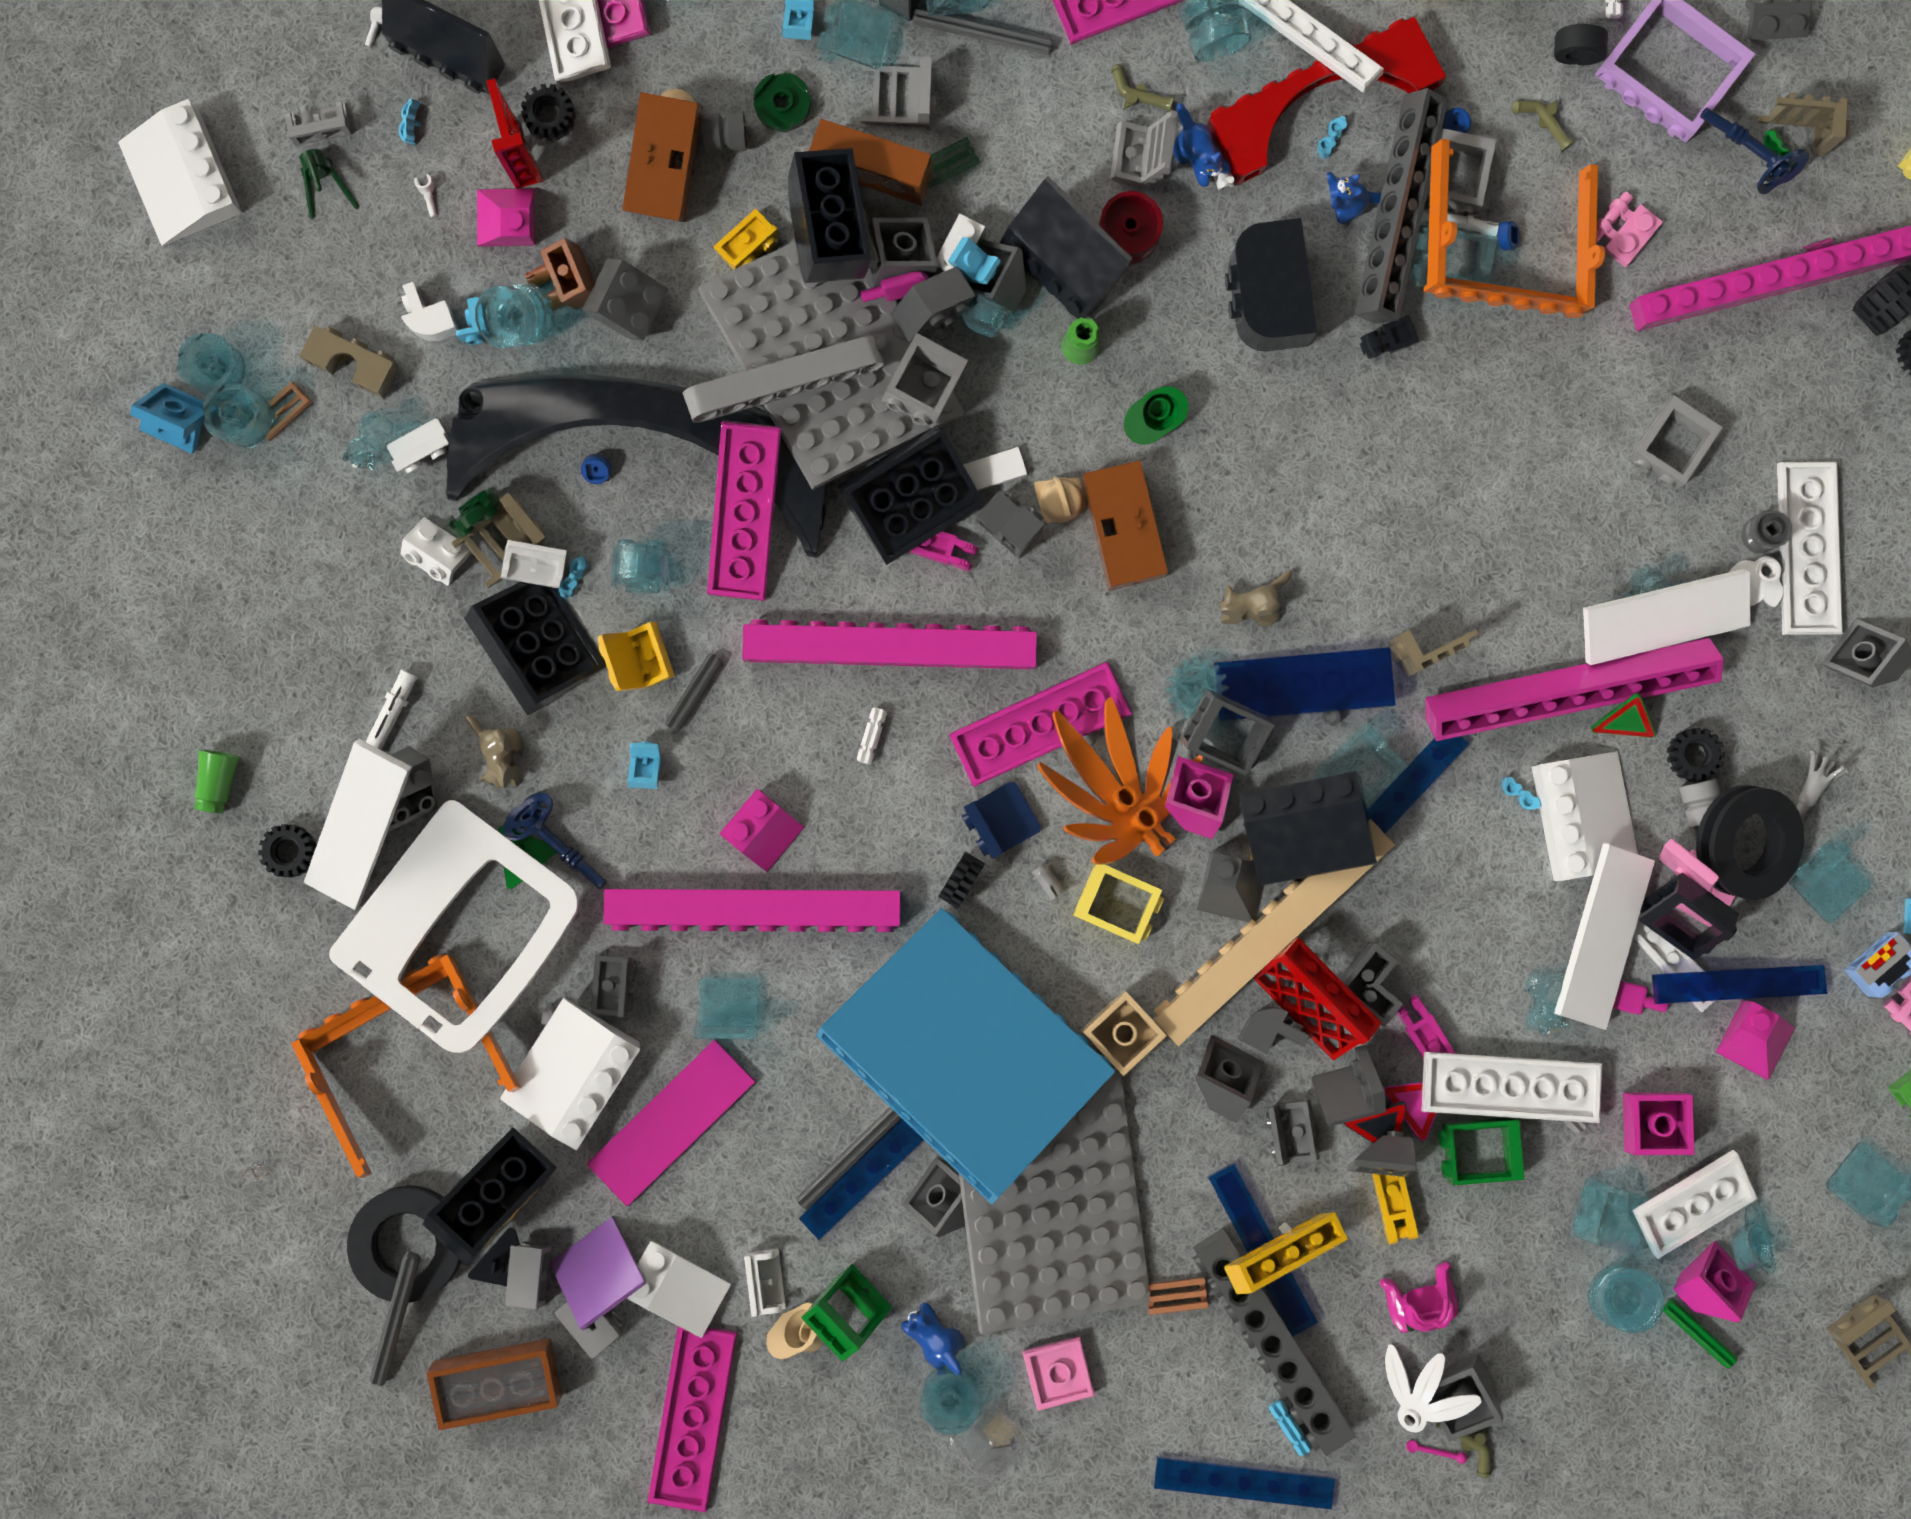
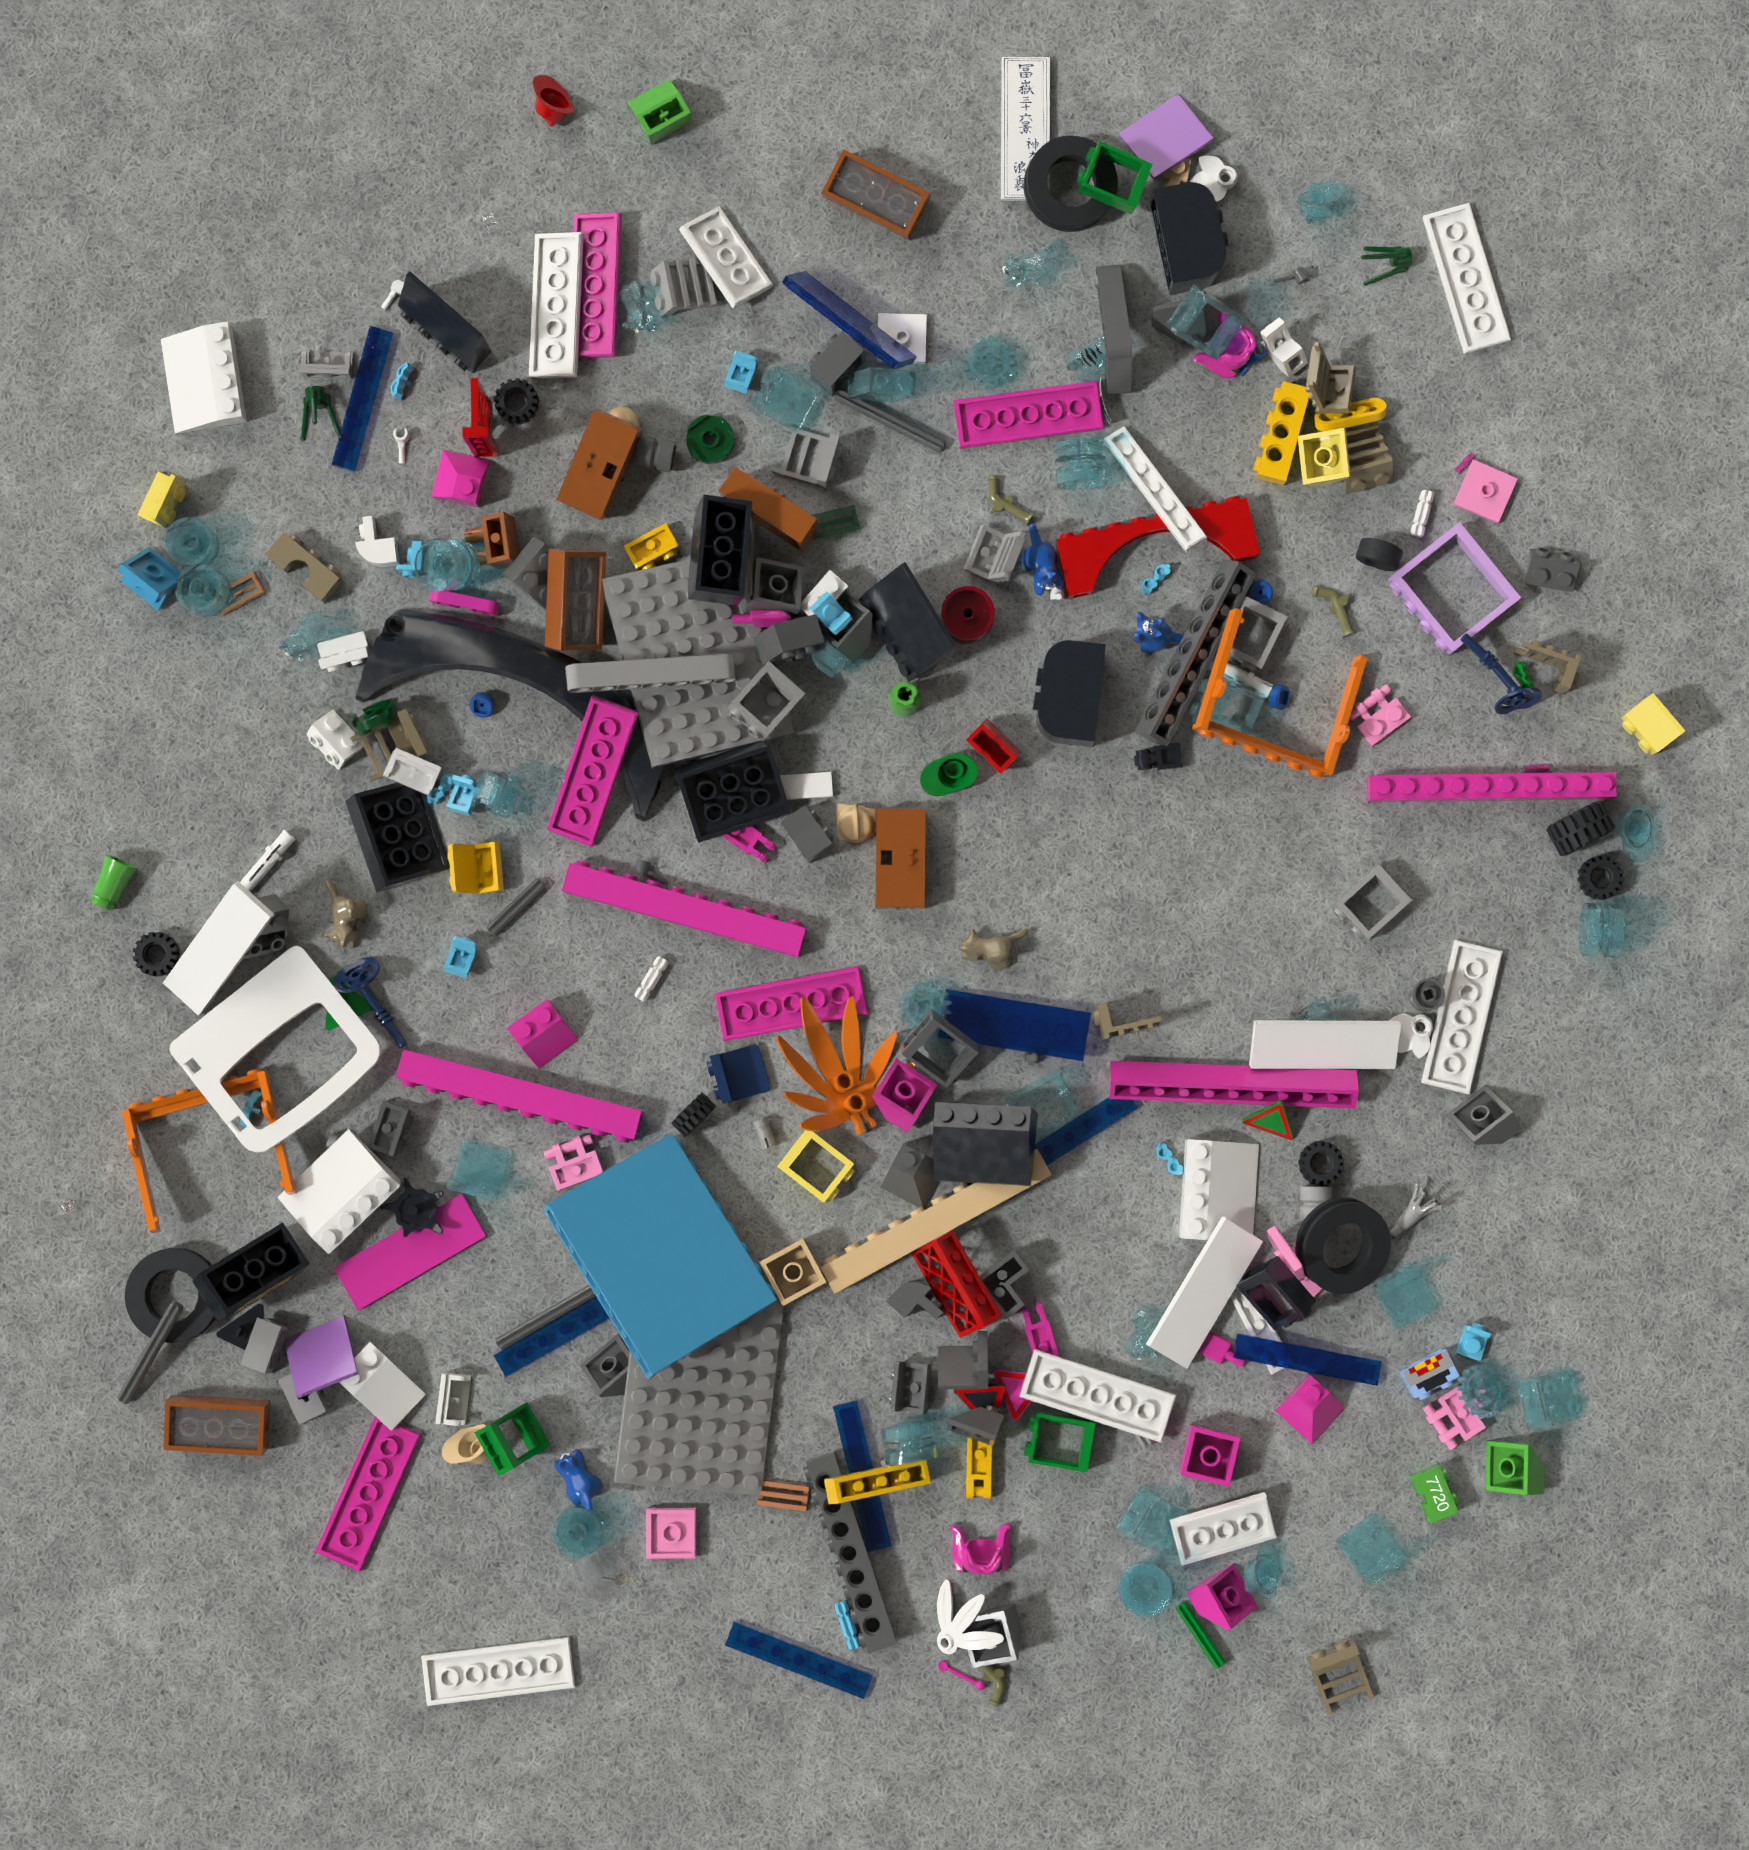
camera: 25 degrees right, 0 degrees up
(165, 323) = (162, 499): none -> light yellow bracket
(369, 153) = (362, 399): none -> clear blue tile
(441, 999) = (250, 1106): none -> medium azure piece
(540, 355) = (459, 600): none -> dark pink beam
(598, 577) = (462, 795): none -> medium azure bracket
(665, 1072) = (415, 1209): none -> black piece
(673, 317) = (575, 599): none -> brick
(828, 609) = (643, 868): none -> dark grey hand
(840, 978) = (576, 1169): none -> bright pink plate
(1198, 370) = (993, 745): none -> red brick
(1227, 1078) = (868, 1329): dark grey slope -> none
(1310, 1198) = (909, 1447): none -> clear light blue wheel

